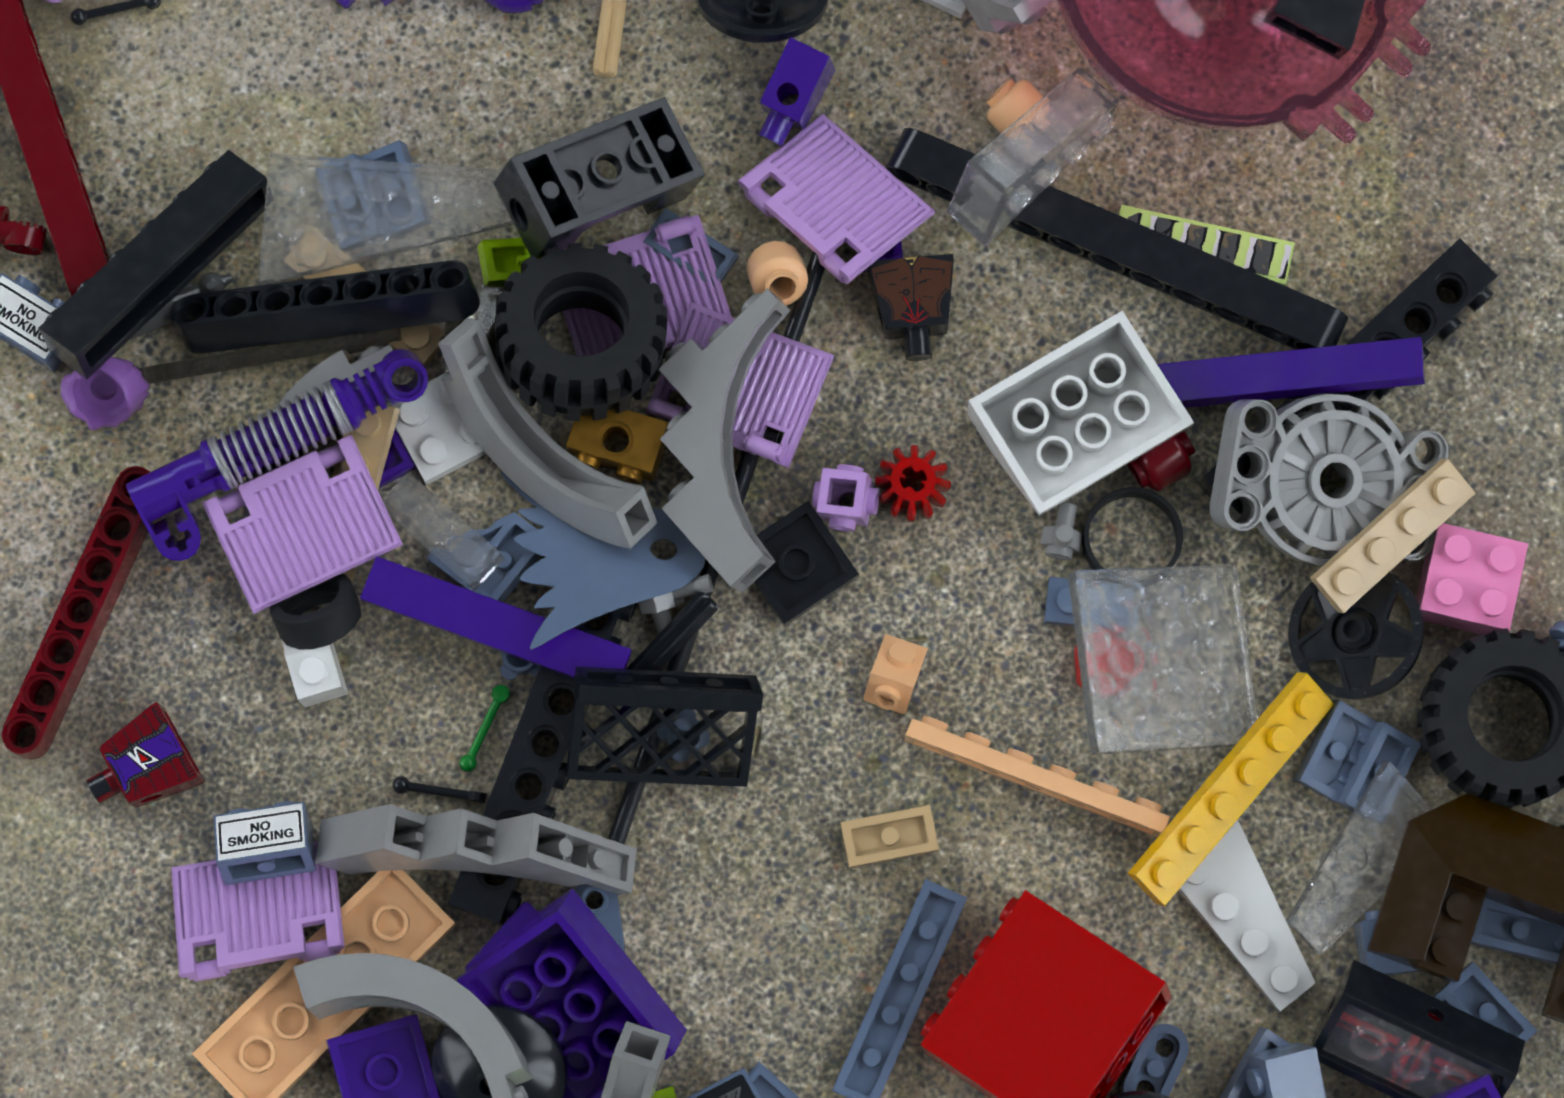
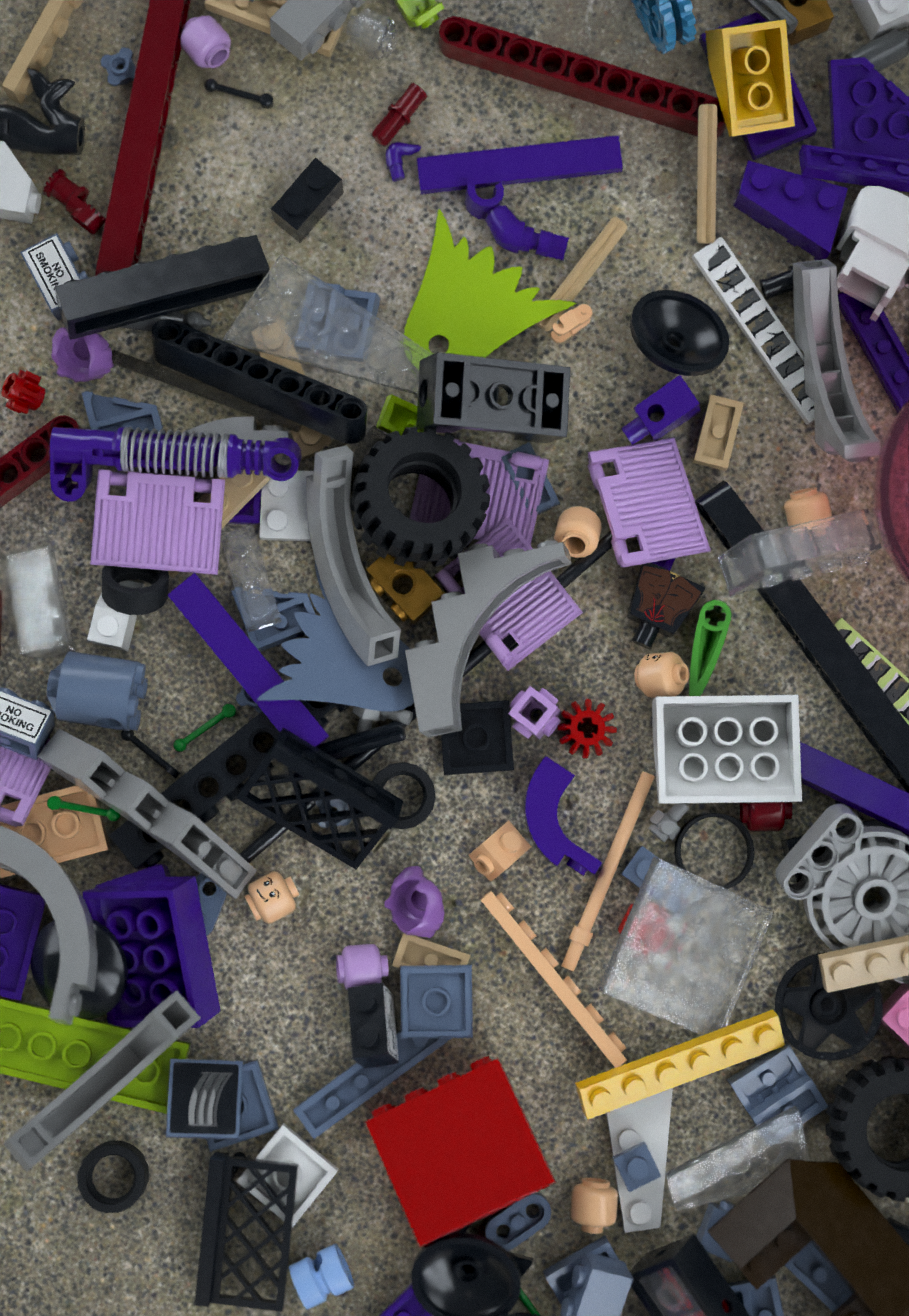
camera: 25 degrees right, 5 degrees up
(63, 470) = (23, 392): none -> red gear
(185, 432) = (116, 412): none -> sand blue wing
(218, 696) = (39, 604): none -> clear wedge
(263, 81) = (307, 200): none -> black brick
(342, 751) = (97, 691): none -> sand blue cylinder
(365, 904) = (56, 803): none -> green hinge
(508, 92) = (470, 302): none -> lime piece
(636, 52) = (571, 323): none -> light nougat piece
(670, 868) = (272, 897): none -> light nougat head
(768, 644) = (425, 782): none -> black tyre
(816, 888) = (361, 965): none -> lavender head
(836, 782) = (415, 903): none -> medium lavender hair
(867, 941) = (373, 1025): none -> black brick
(868, 80) = (718, 432): none -> tan plate
(922, 610) = (542, 822): none -> dark purple arch
(922, 876) = (436, 1001): none -> sand blue tile
(960, 376) = (661, 674): none -> light nougat head
(992, 316) = (707, 646): none -> bright green piece
(1040, 712) = (581, 934): none -> light nougat bar
(1228, 1000) = (594, 1204): none -> light nougat head
(1249, 928) = (636, 1166): none -> sand blue plate

